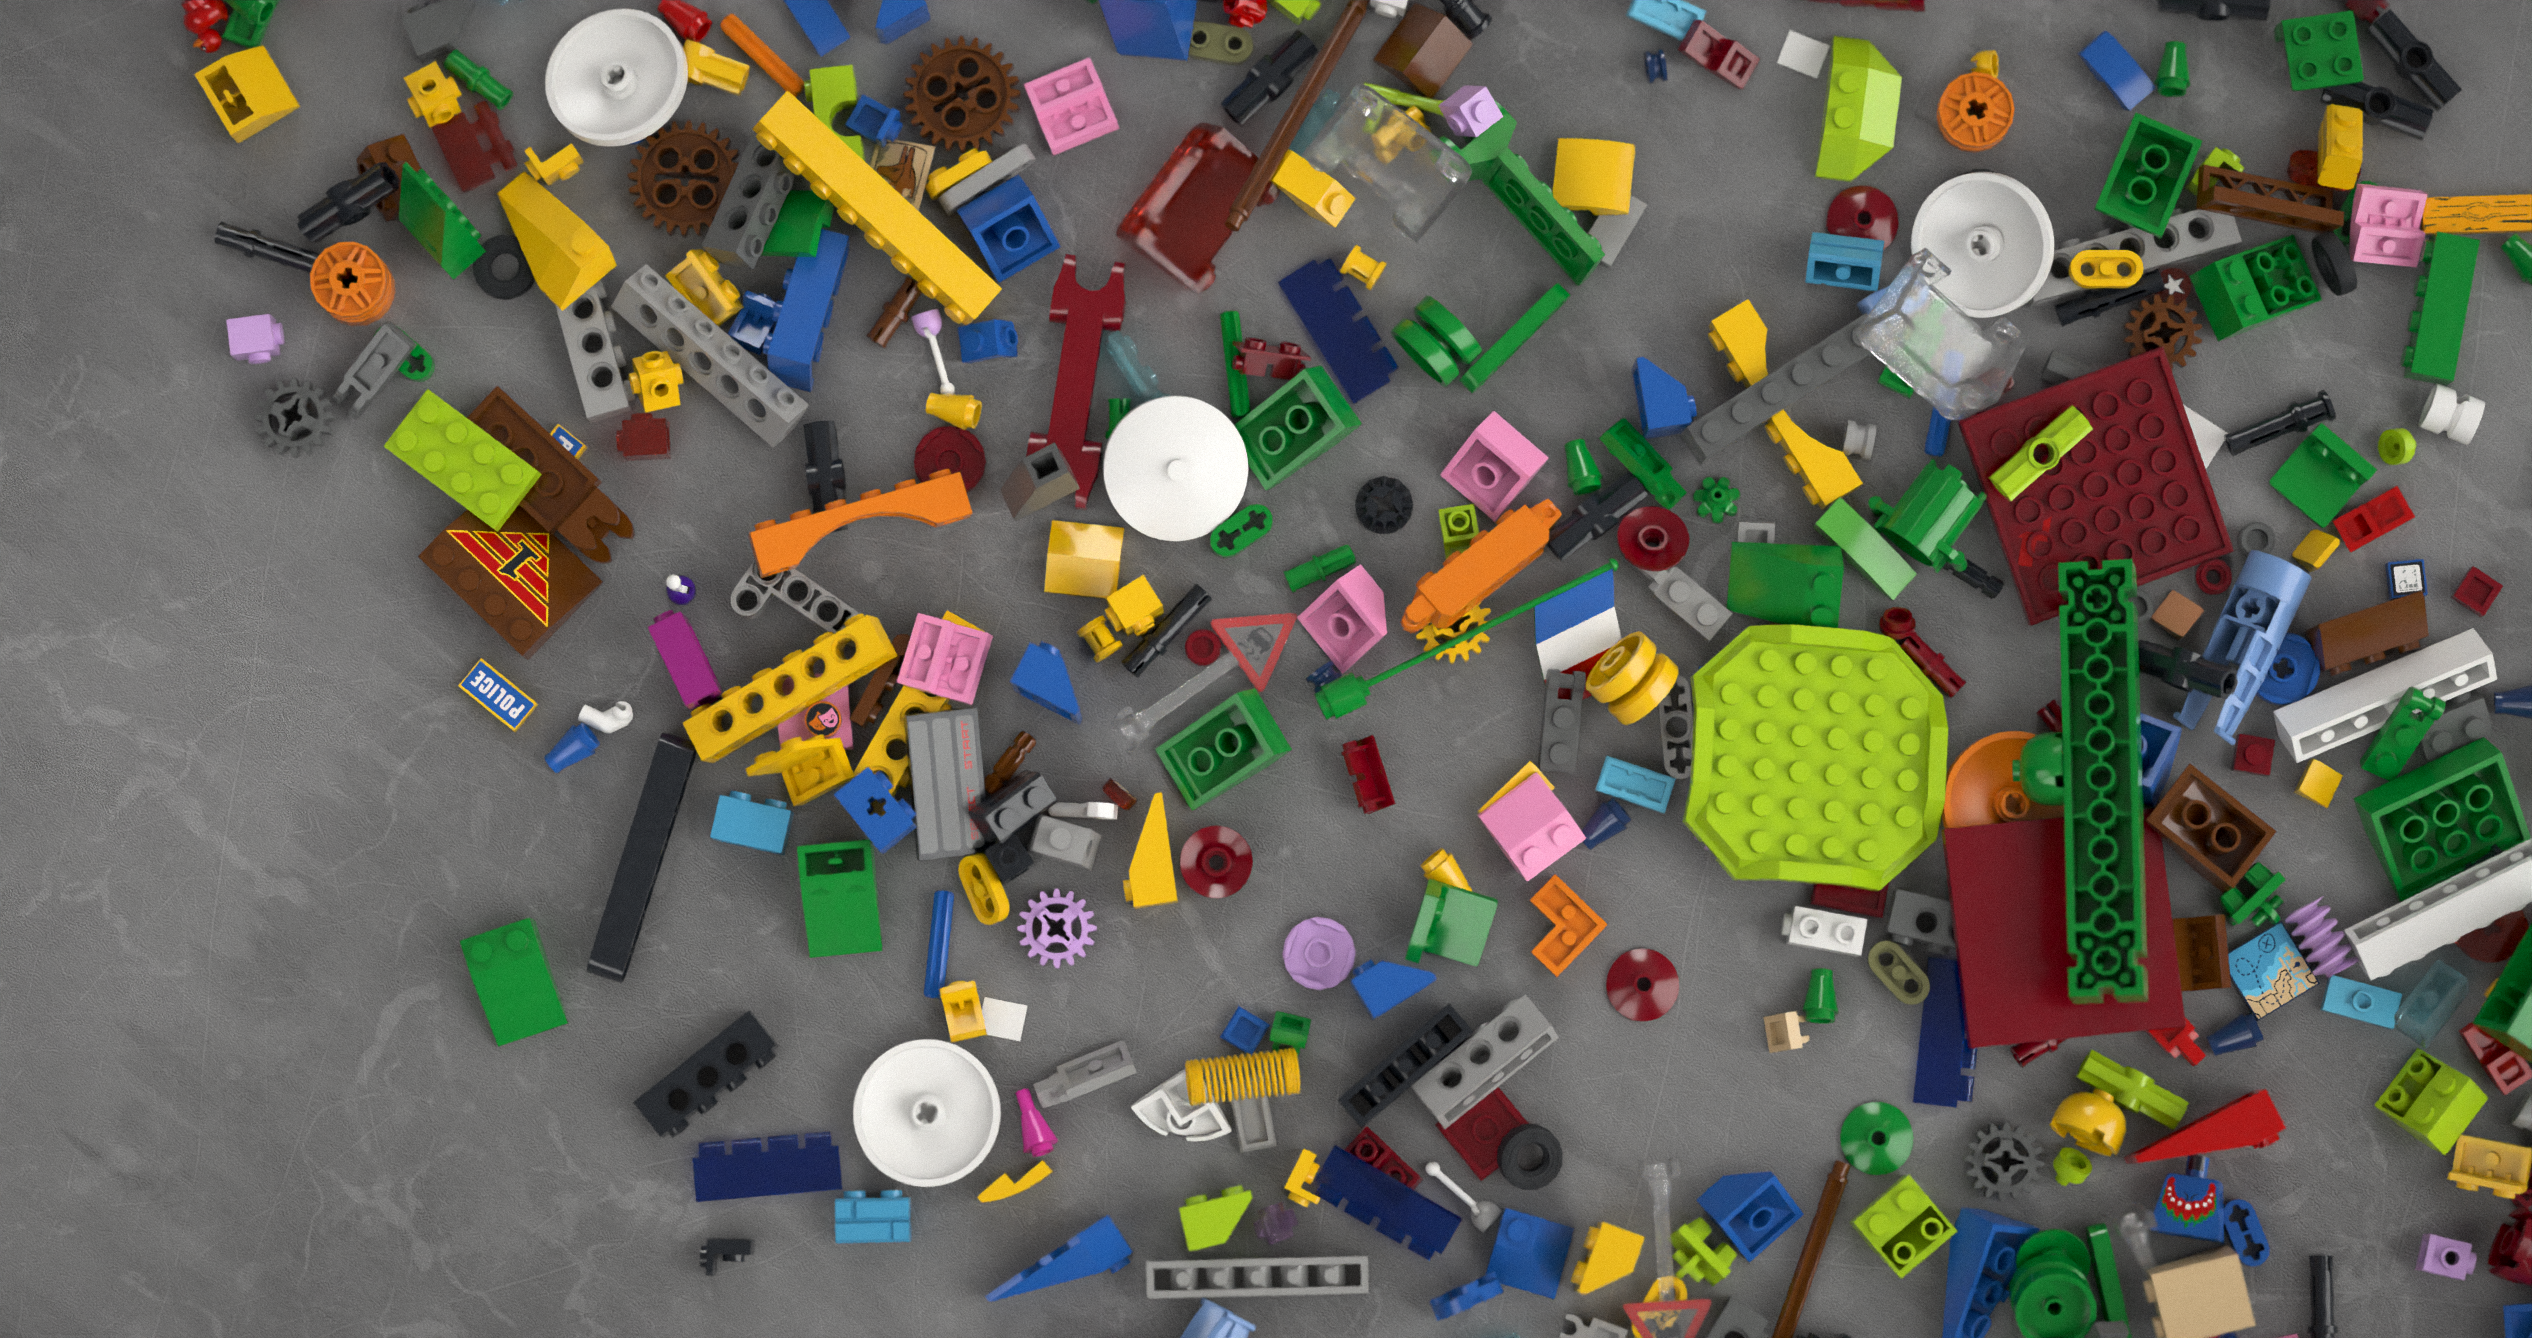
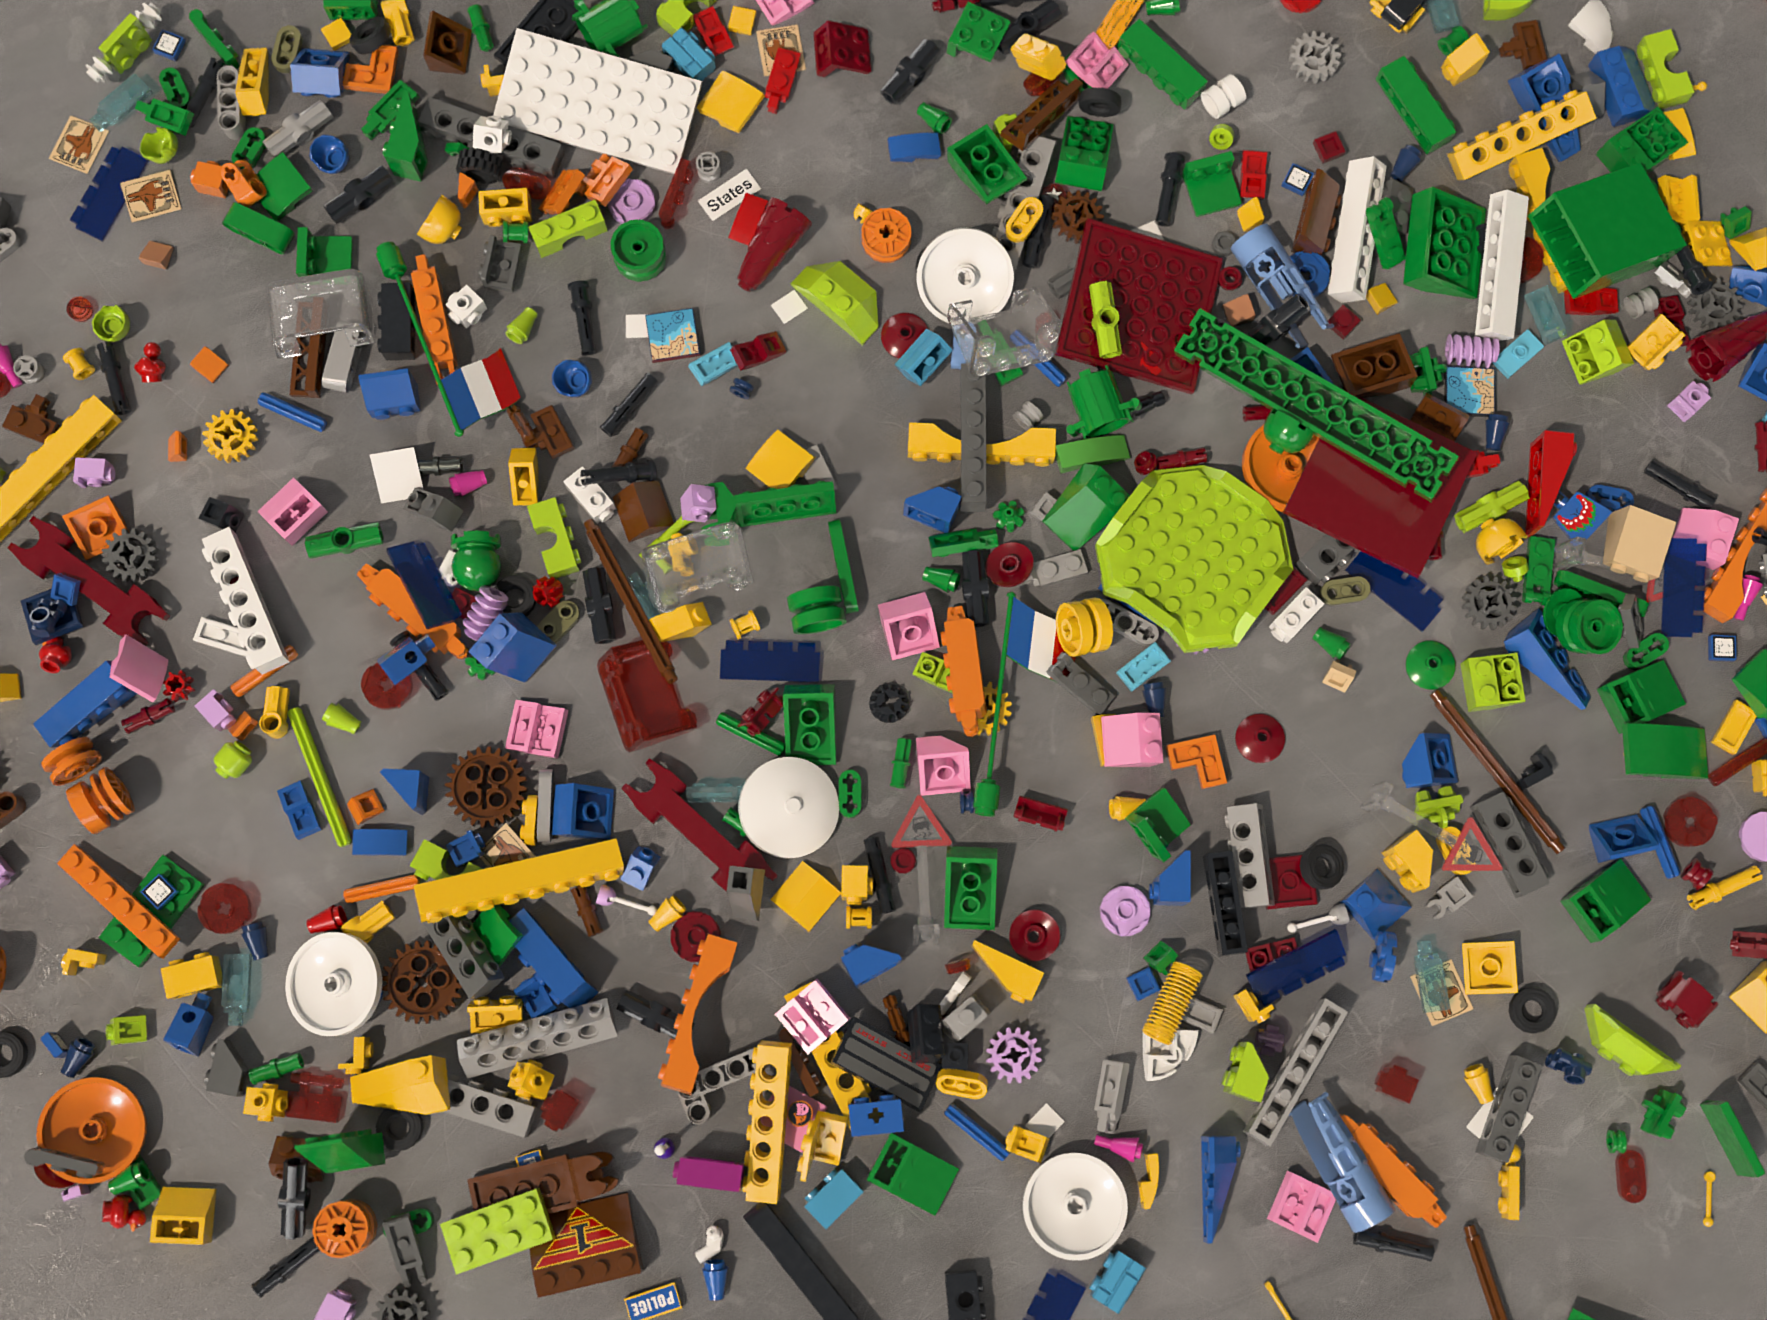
camera: 60 degrees left, 5 degrees down
(2091, 1198) = (1540, 564): none -> green plate

